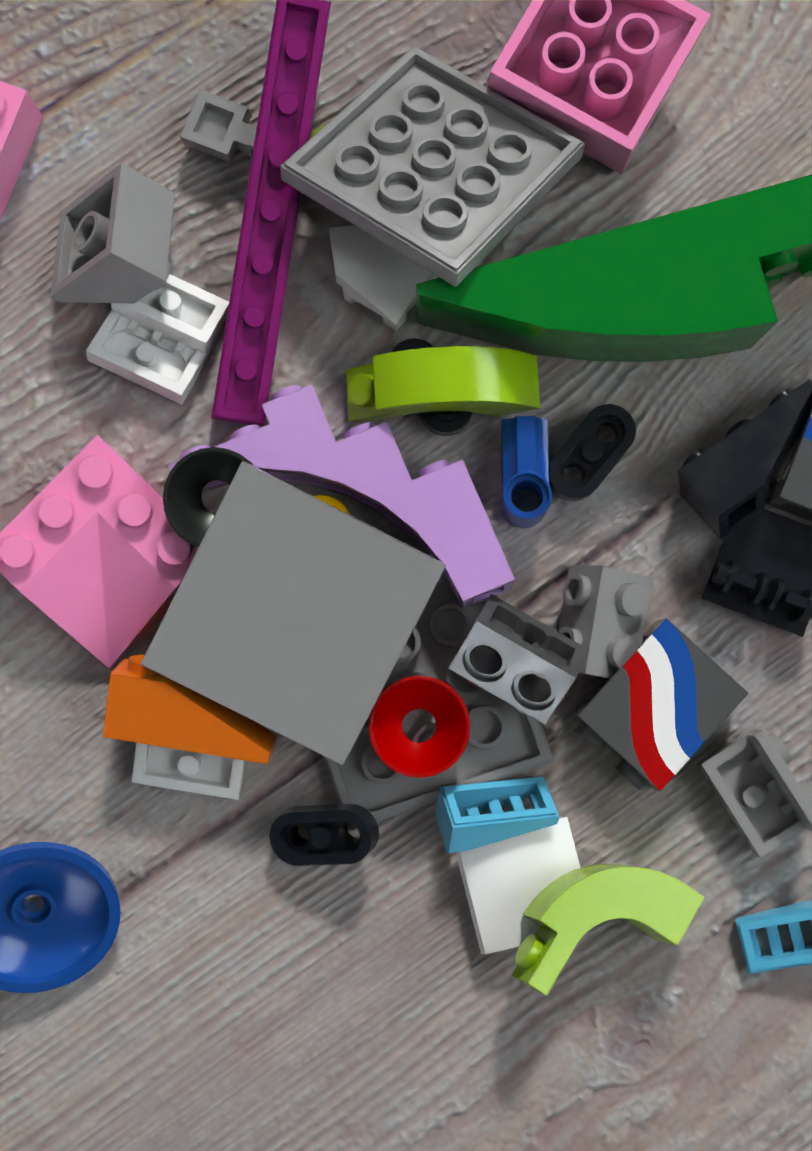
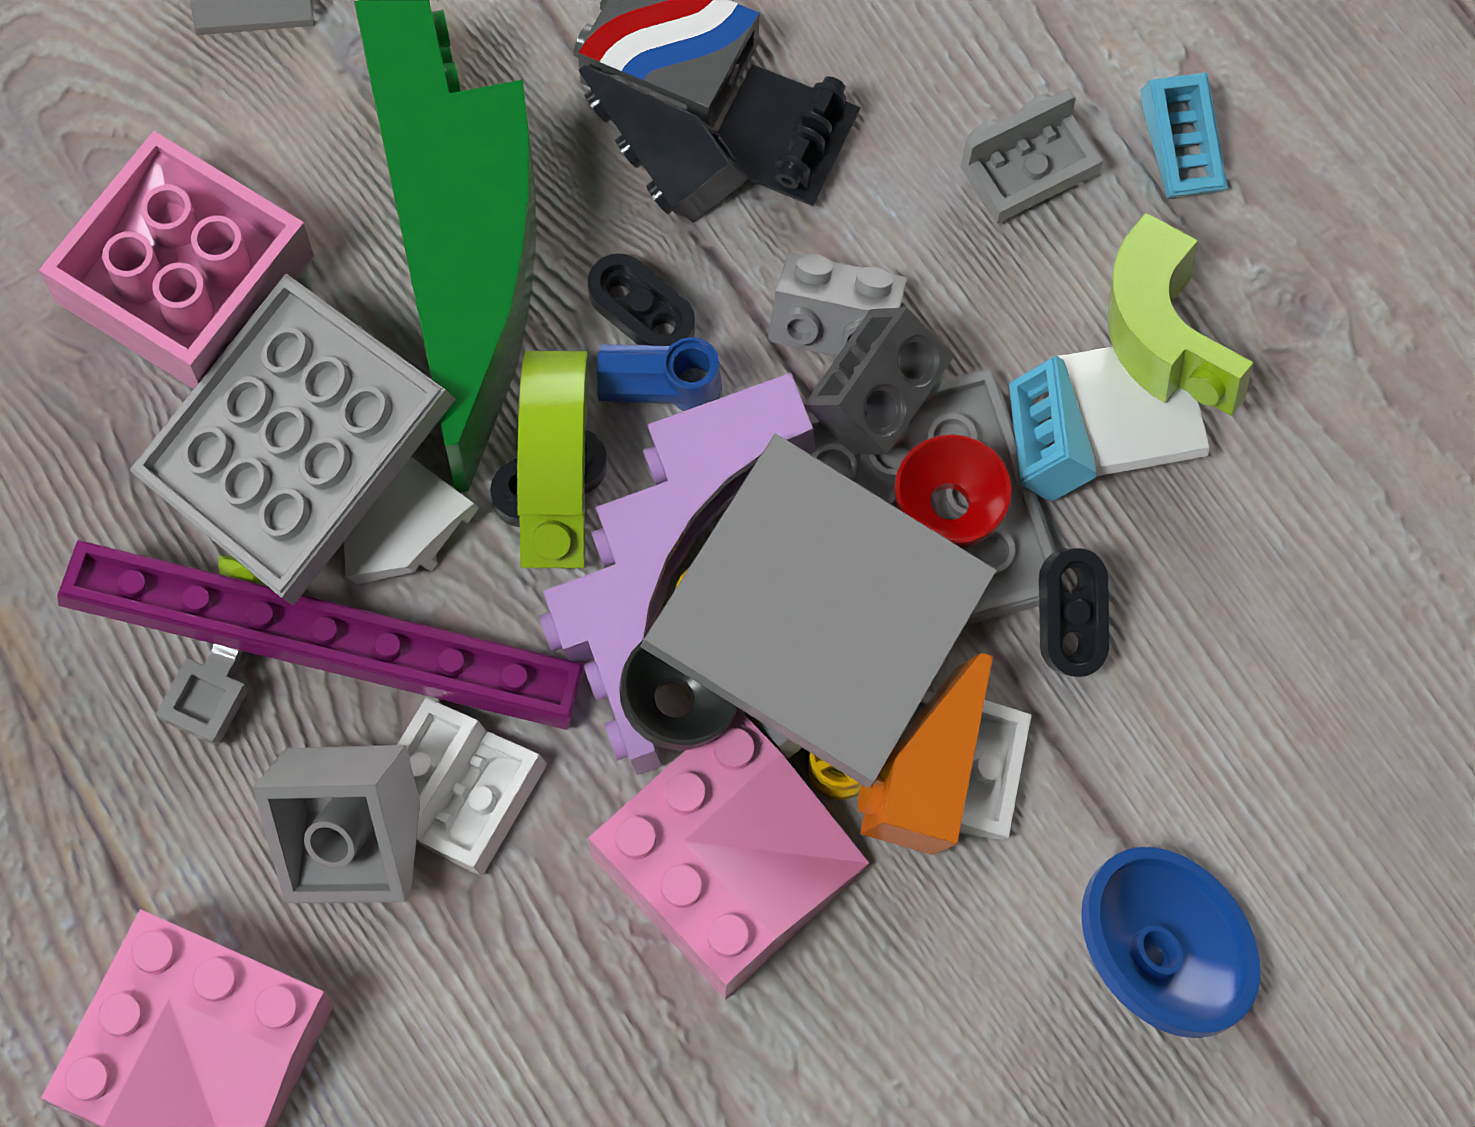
camera: 90 degrees left, 15 degrees down
(659, 707) = (936, 249): panel -> none

